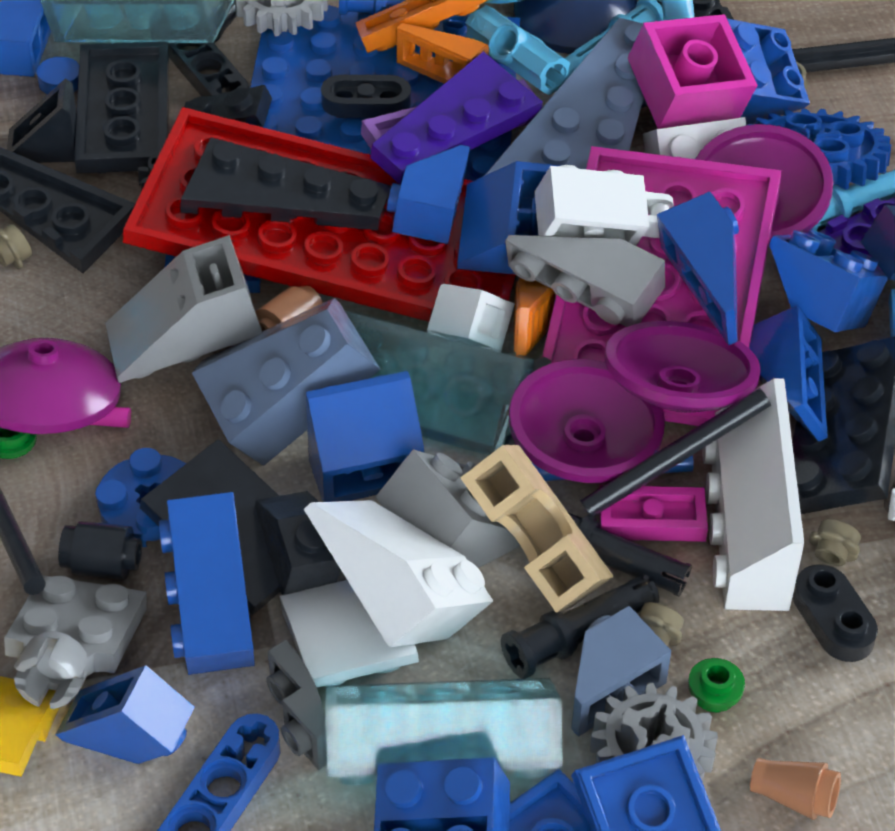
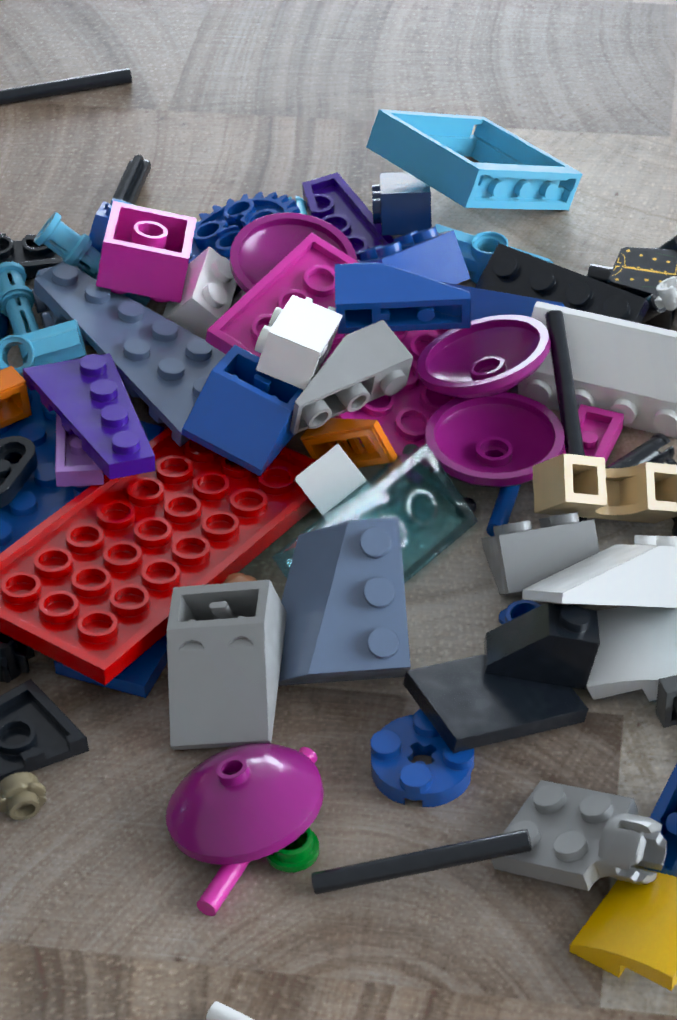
camera: 65 degrees left, 5 degrees down
(99, 550) = (480, 800): black brick -> none
(207, 584) = (573, 716): blue brick -> none
(263, 182) = (104, 555): black wing -> none
(361, 434) = (444, 581): blue slope -> none
(429, 195) = (186, 454): blue slope -> none

